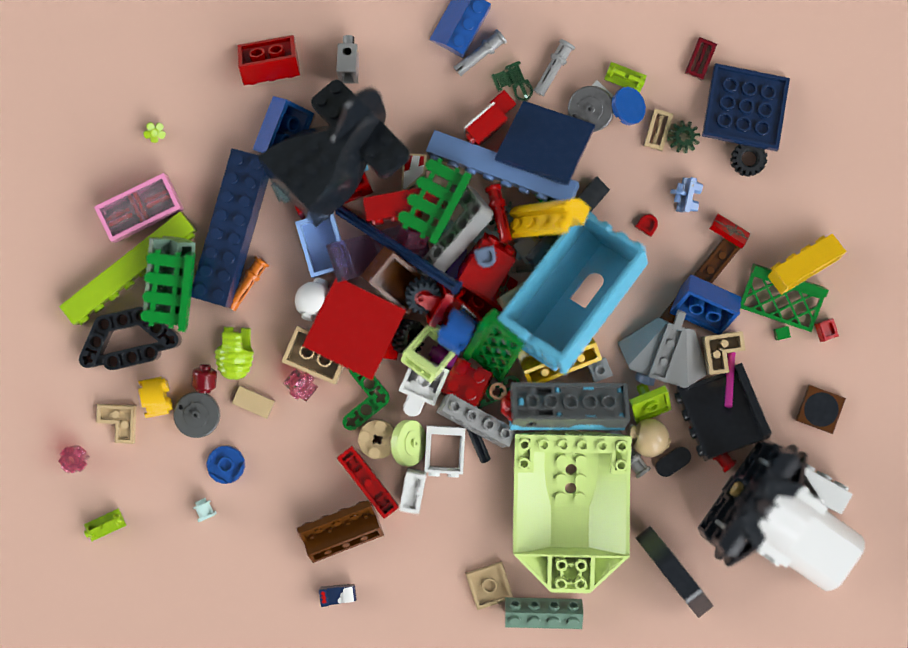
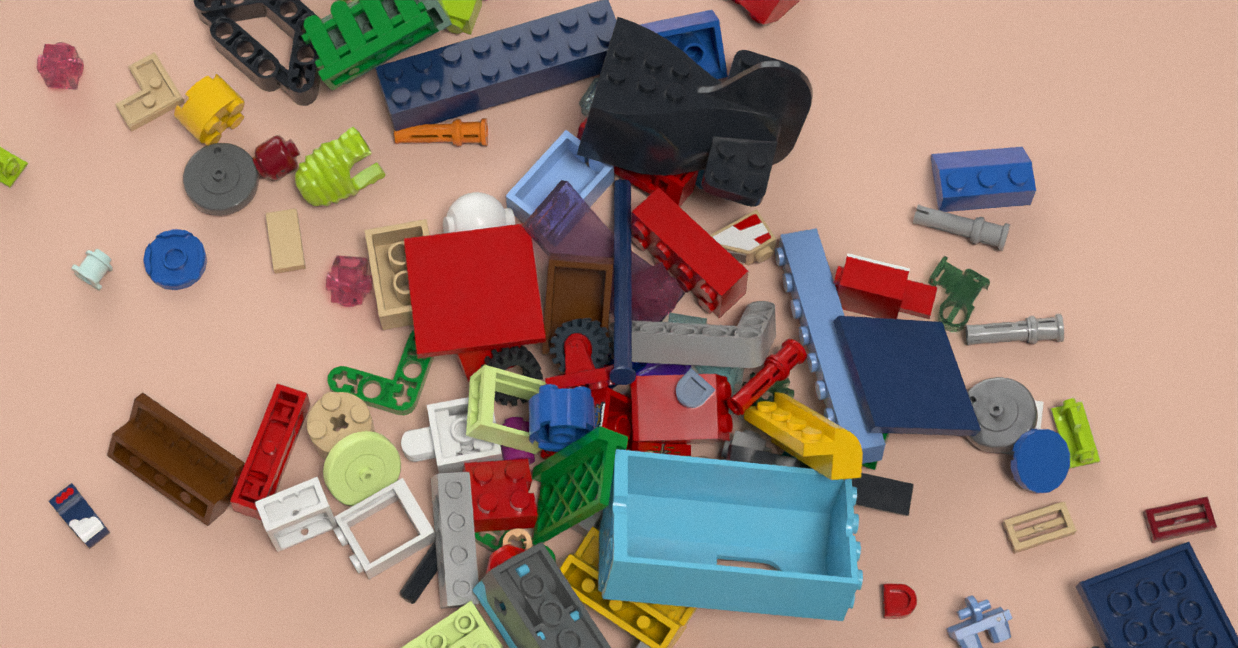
camera: 60 degrees right, 20 degrees down
(348, 60) = (828, 65): light grey torso -> none
(440, 192) = (740, 298): green fence -> none
(688, 143) = (1050, 575): clear green gear -> none

